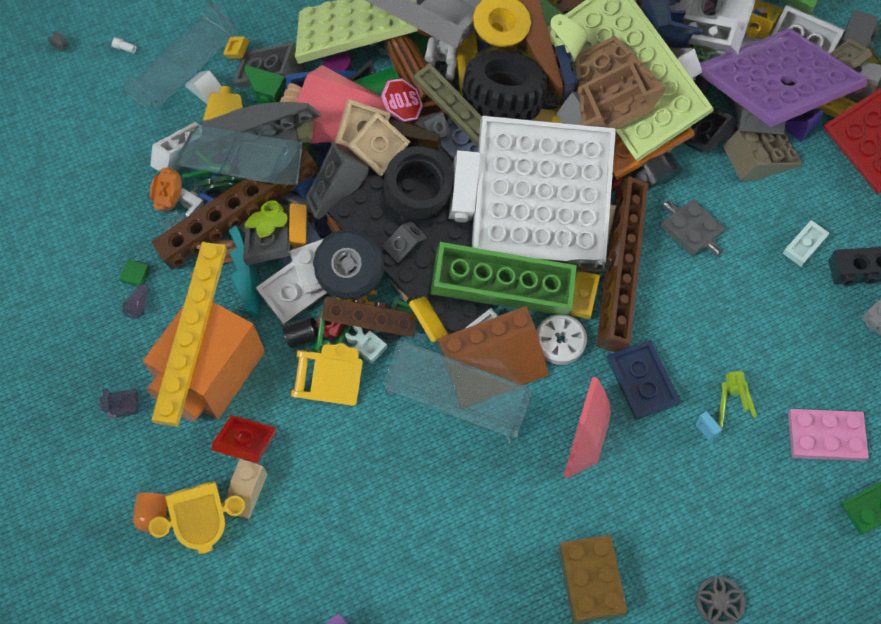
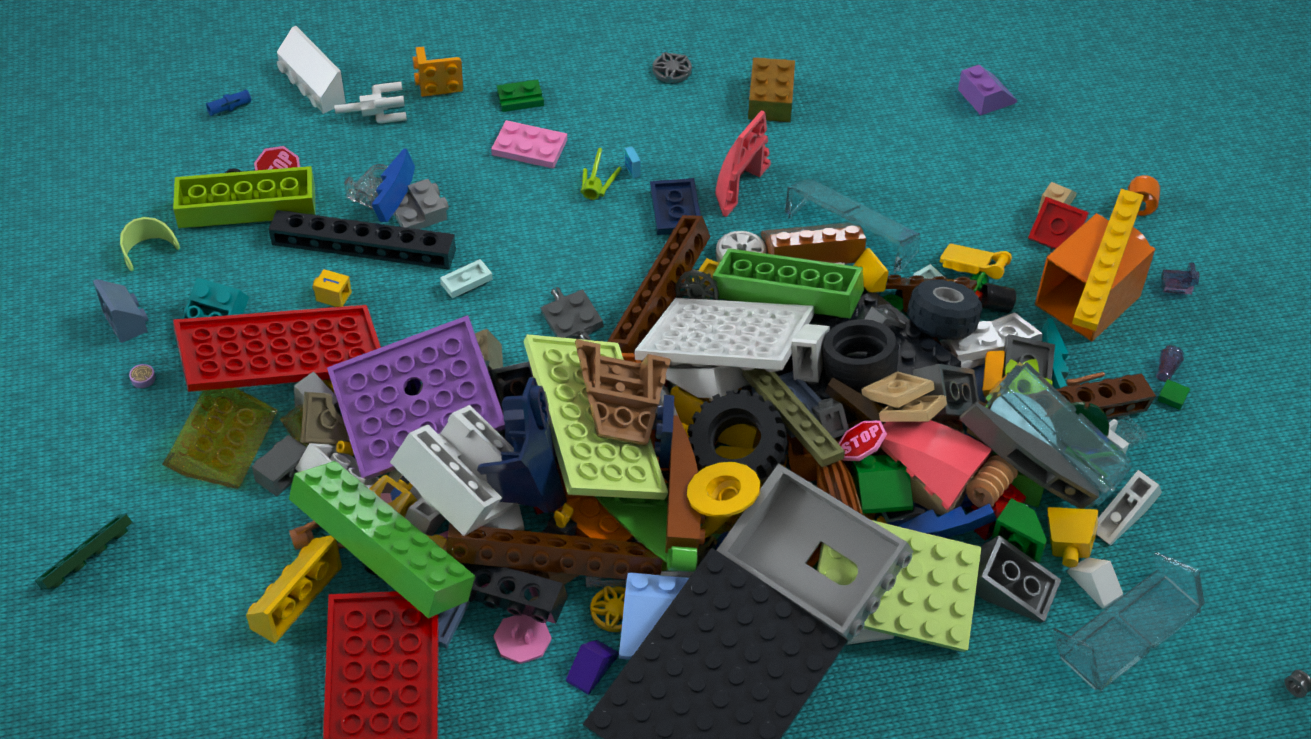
camera: 170 degrees left, 15 degrees down
(120, 44) = (1214, 667): white piece -> none
(165, 189) = (1142, 455): orange tile -> none
(196, 516) = (1102, 177): yellow piece -> none
(236, 47) = (1055, 617): yellow plate -> none
(569, 34) = (644, 445): yellowish green piece -> none

